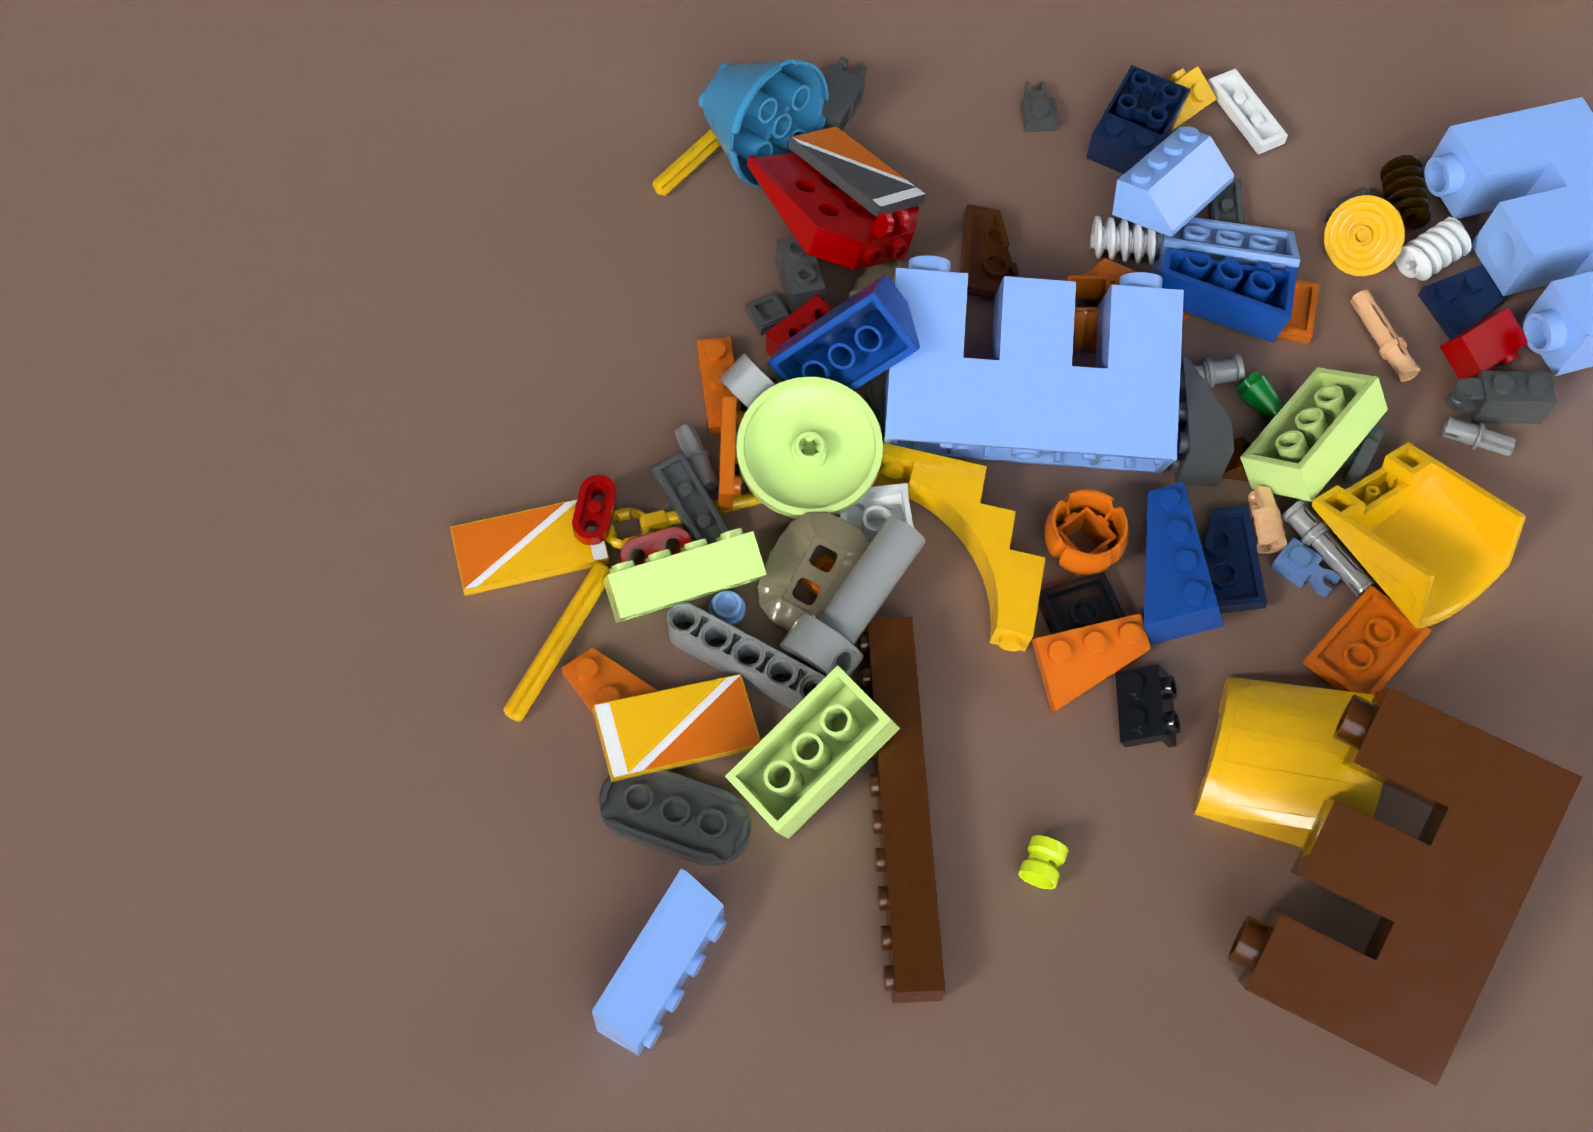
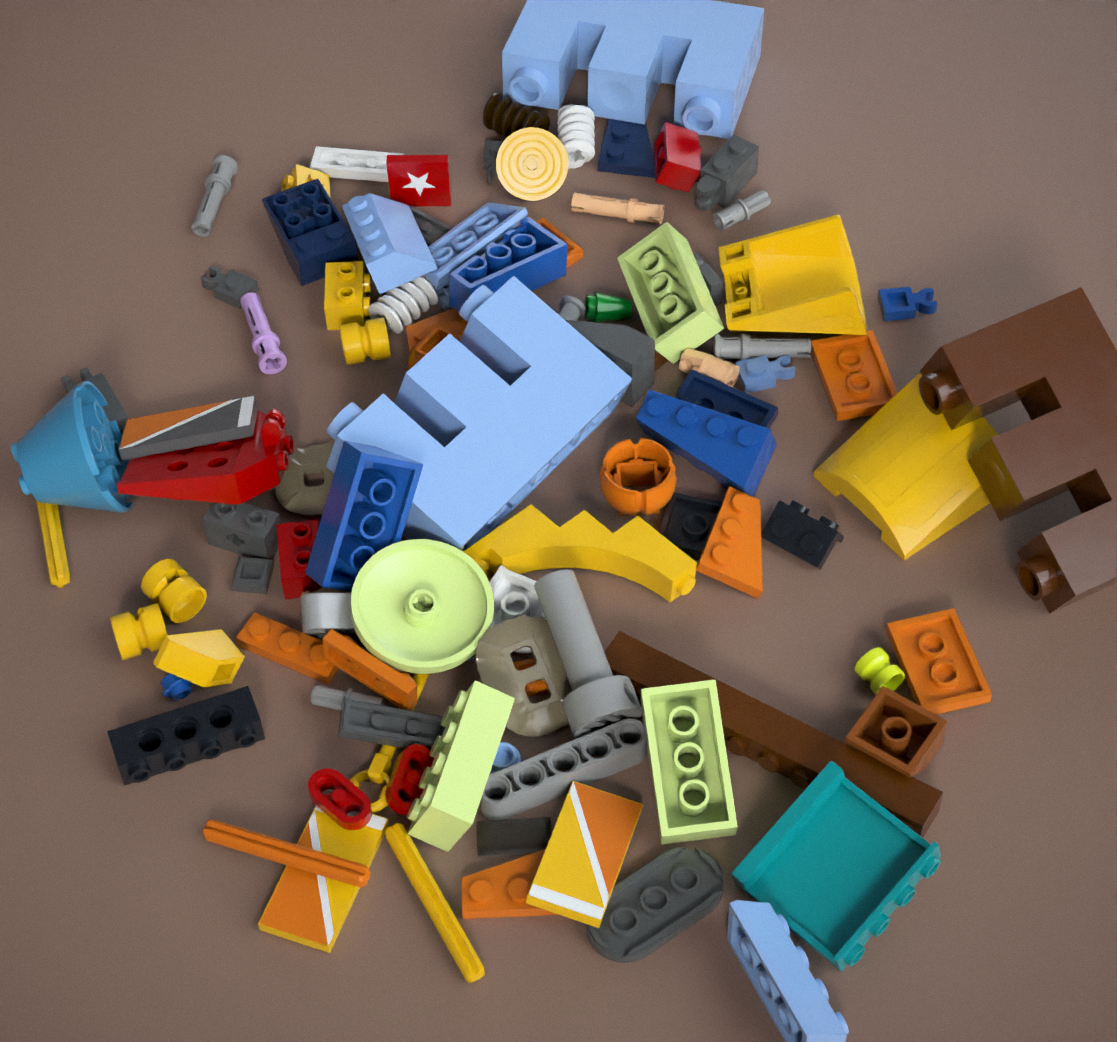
camera: 50 degrees left, 10 degrees down
(521, 506) = (287, 853): none -> orange axle
(571, 350) = (195, 720): none -> black brick
(623, 329) = (175, 687): none -> blue plate
(644, 269) = (139, 631): none -> yellow wheel
(651, 326) = (200, 657): none -> yellow slope
(662, 661) = (512, 836): none -> clear smoke tile
(703, 267) = (173, 590): none -> yellow wheel
(804, 942) = (837, 867): none -> teal panel
(975, 915) = (898, 733): none -> dark orange slope
(985, 251) = (325, 392): reddish brown wing -> none
(1000, 169) = (264, 342): none -> lavender pin
(1056, 234) = (365, 341): none -> yellow wheel
(1091, 193) = (346, 293): none -> yellow brick
(1096, 908) = (938, 662): none -> orange plate
(1130, 31) = (217, 186): none -> light grey pin
(1263, 163) = (419, 180): none -> red tile
(1491, 638) = (903, 304): none -> blue plate

